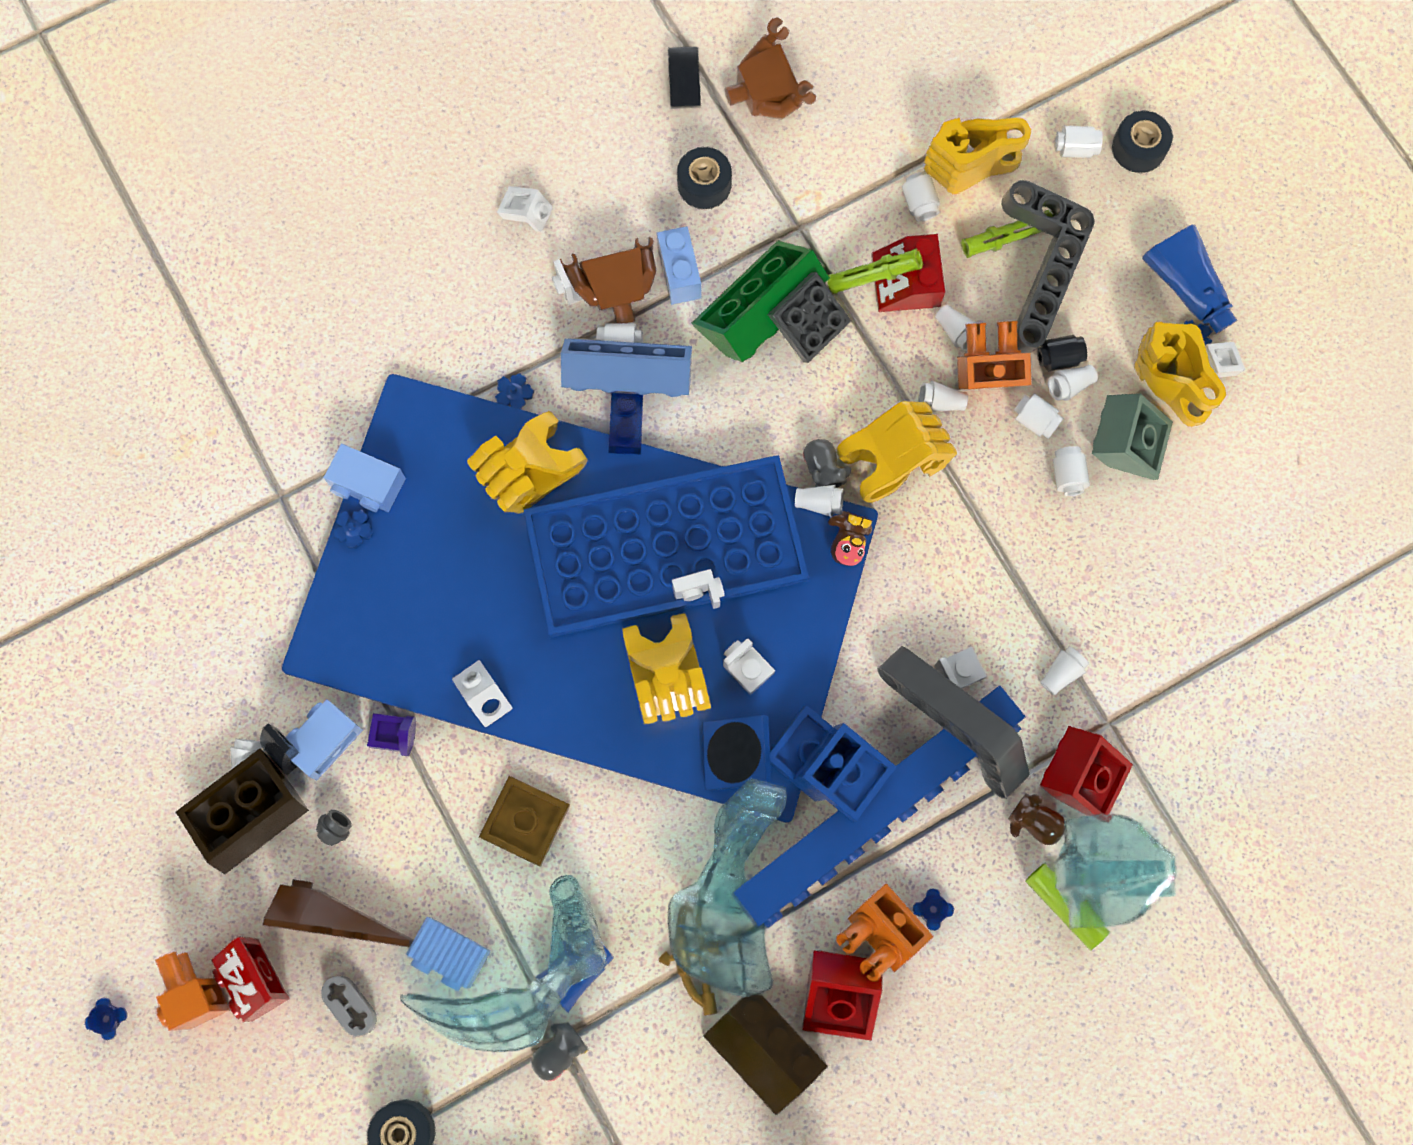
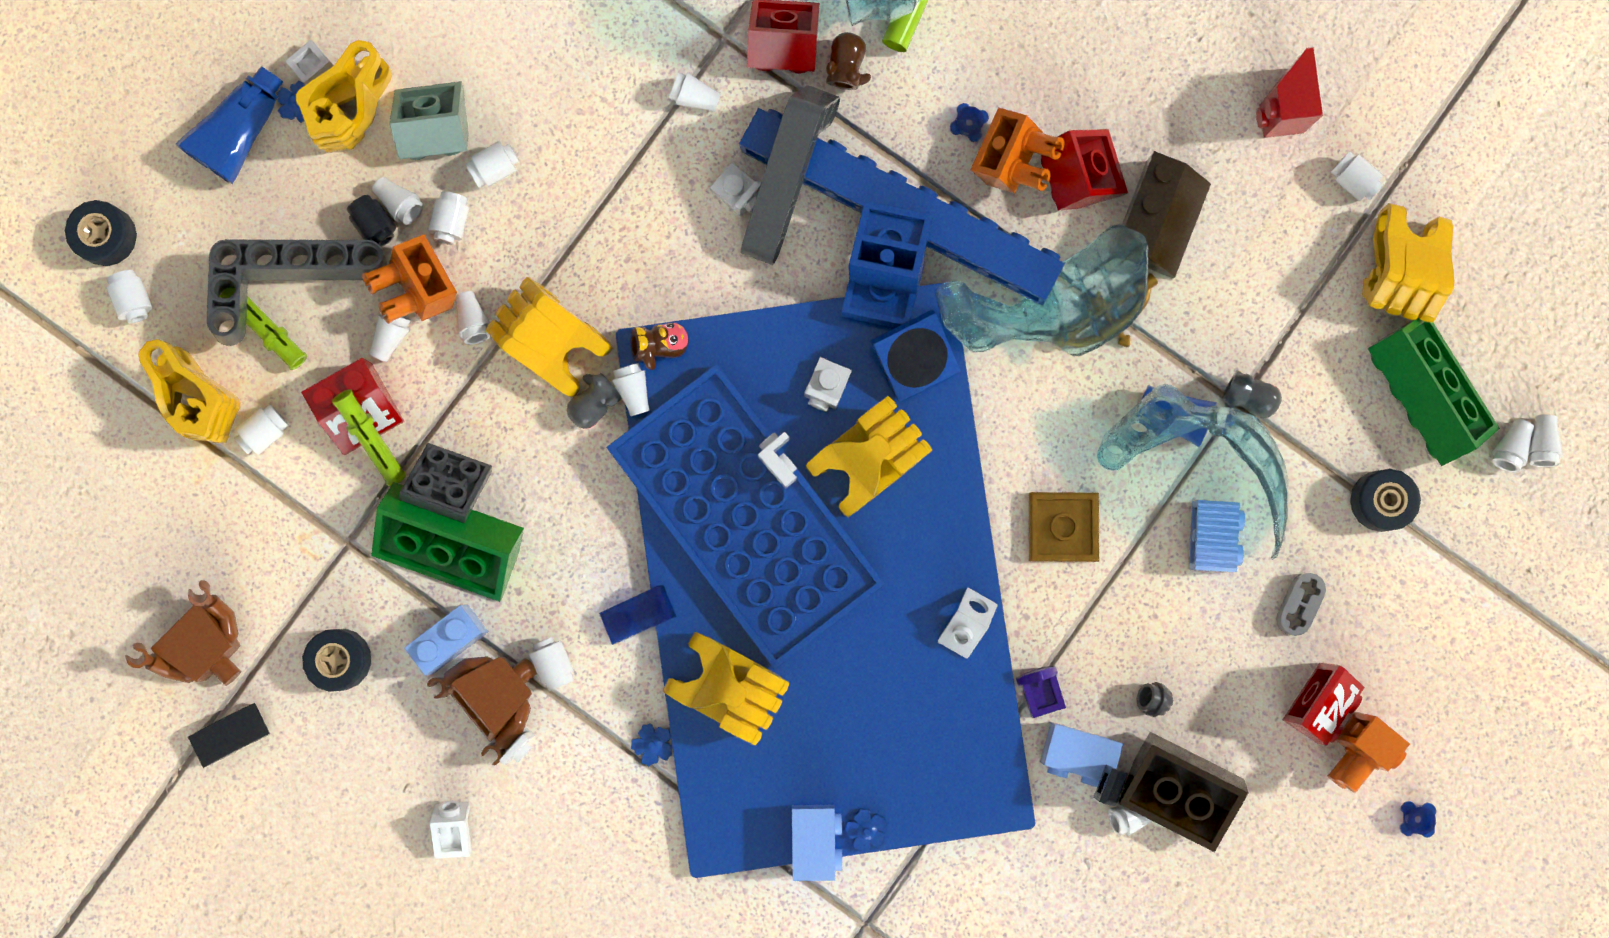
camera: 115 degrees left, 10 degrees up
(315, 911) = (1239, 678): reddish brown wedge -> none
(626, 367) = (580, 640): medium blue brick -> none

